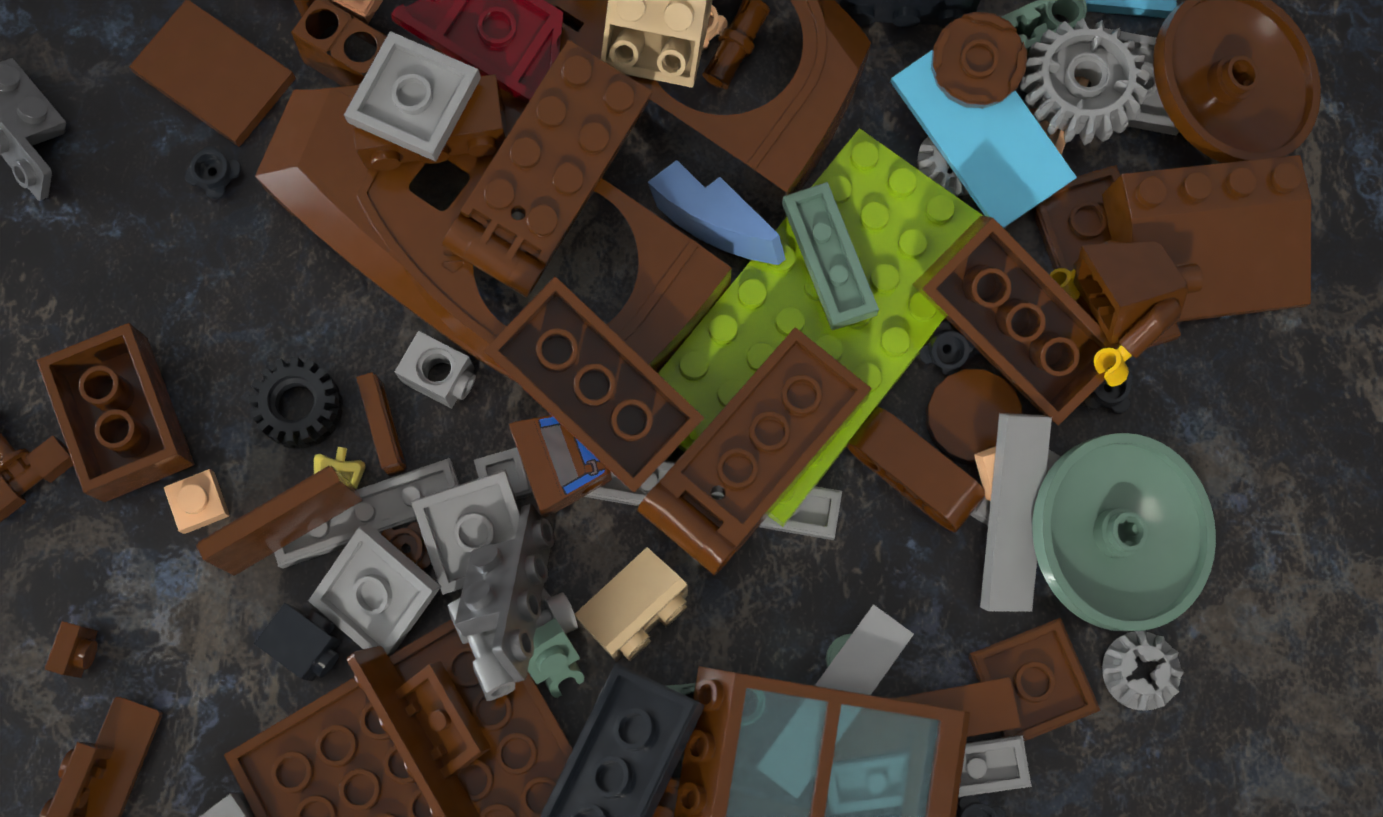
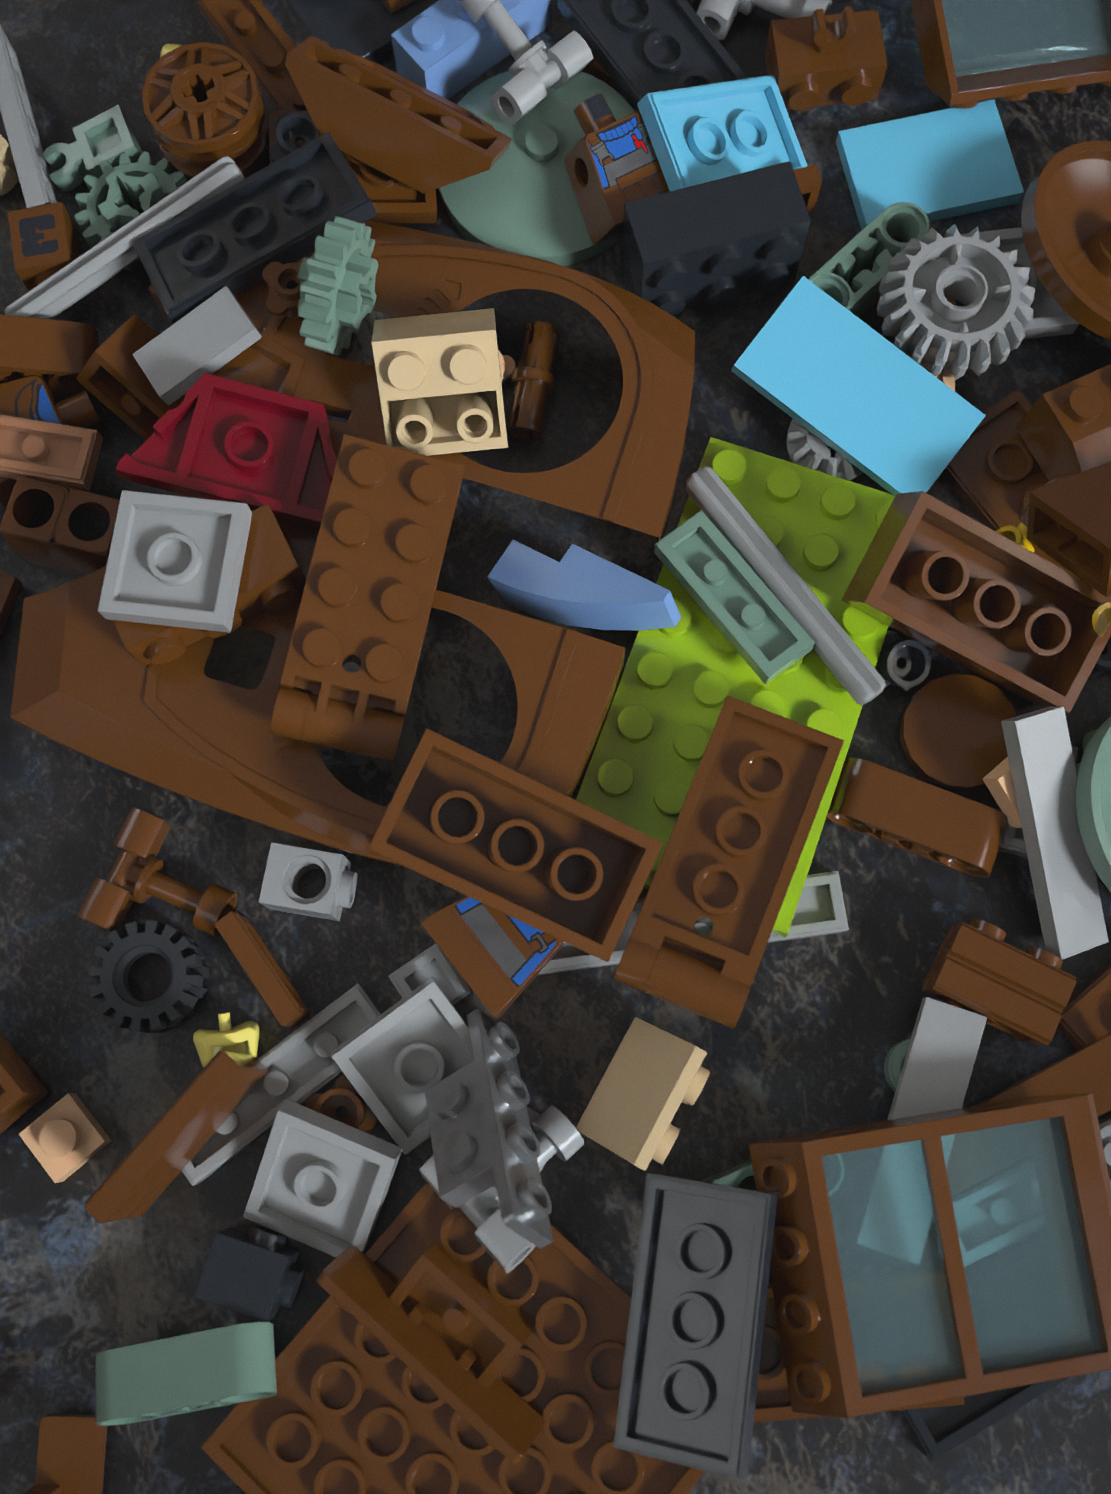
camera: 15 degrees left, 0 degrees up
(229, 697) = (185, 1373): none -> sand green beam
(313, 326) = (139, 876): none -> reddish brown bar
(553, 658) = (570, 1189): sand green plate -> none
(873, 259) = (779, 576): none -> light grey axle
(936, 613) = (1010, 987): none -> reddish brown brick
(978, 60) = (829, 313): reddish brown tile -> none

